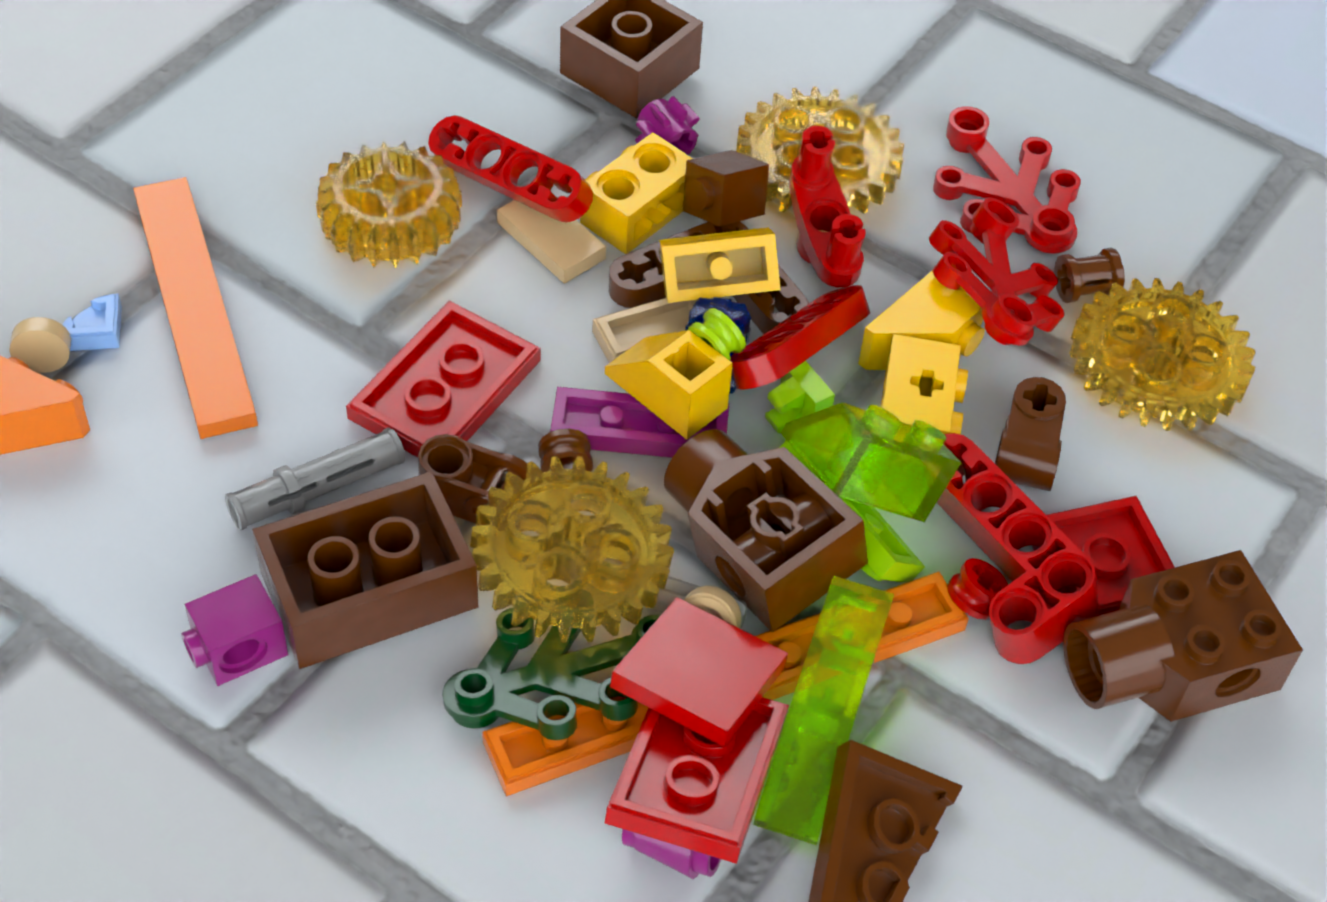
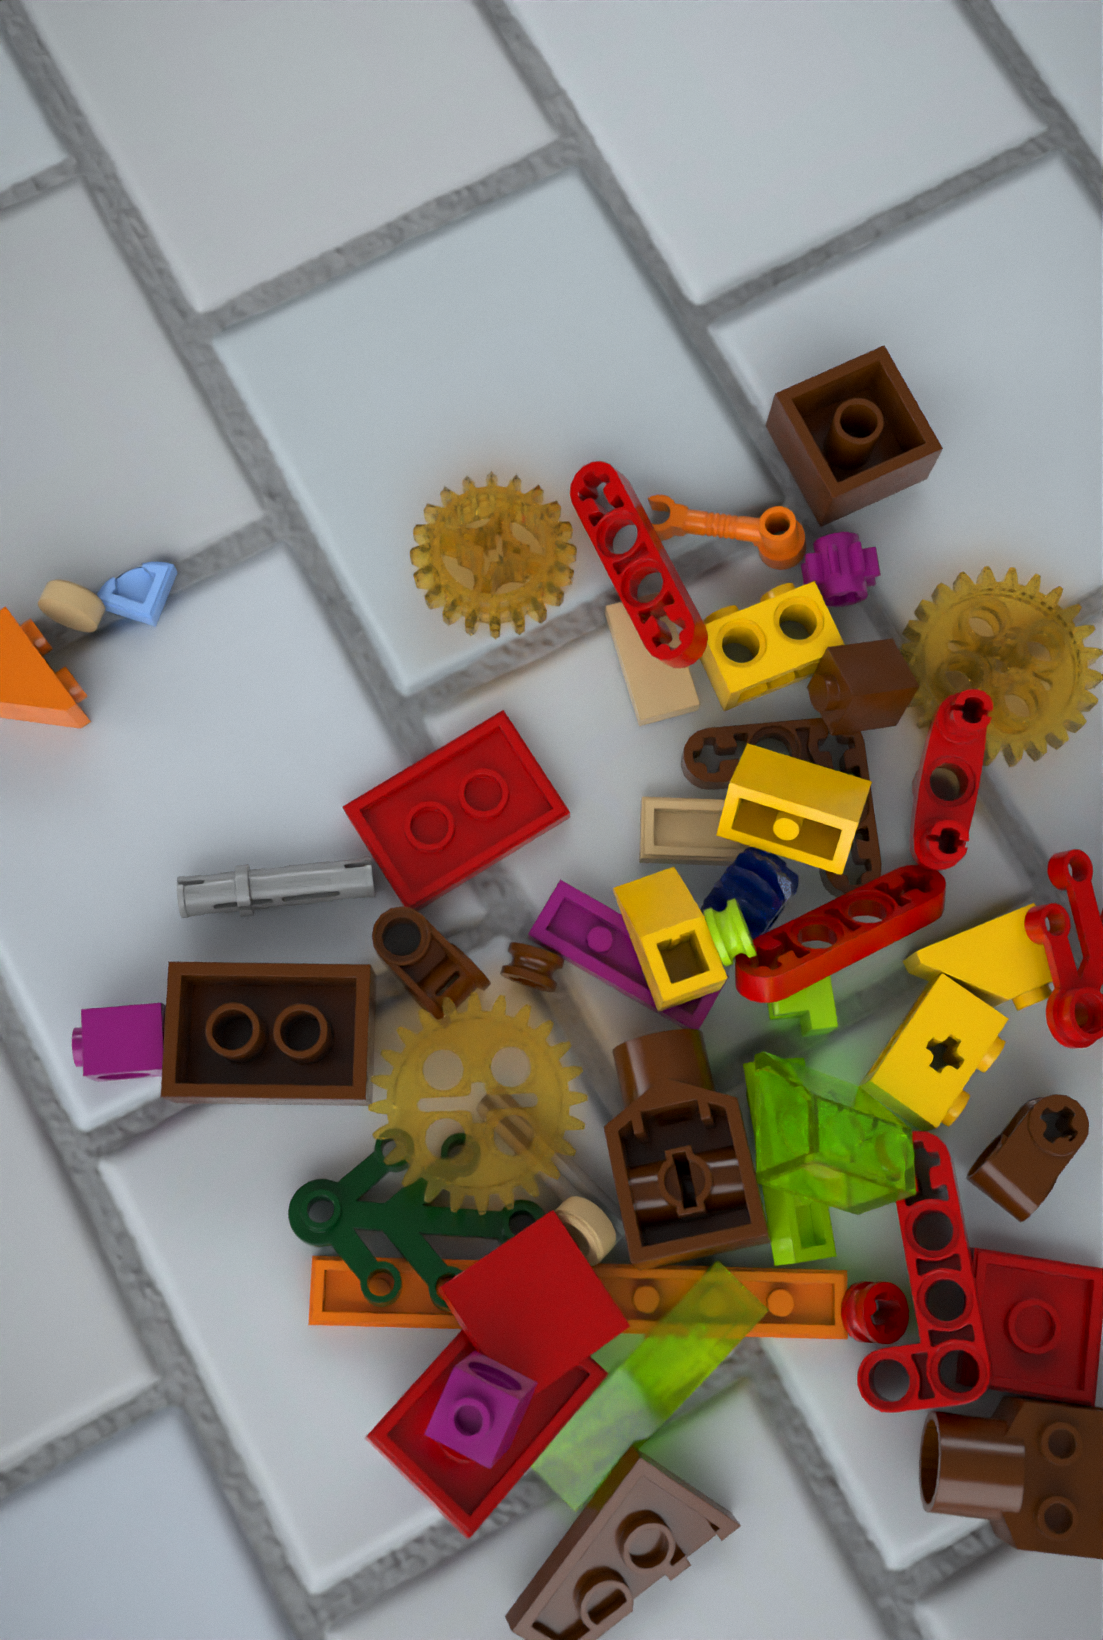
camera: 25 degrees right, 25 degrees up
(195, 309) = (244, 606): tile -> none
(606, 124) = (775, 551): none -> orange brick
(698, 722) = (481, 1409): none -> magenta brick

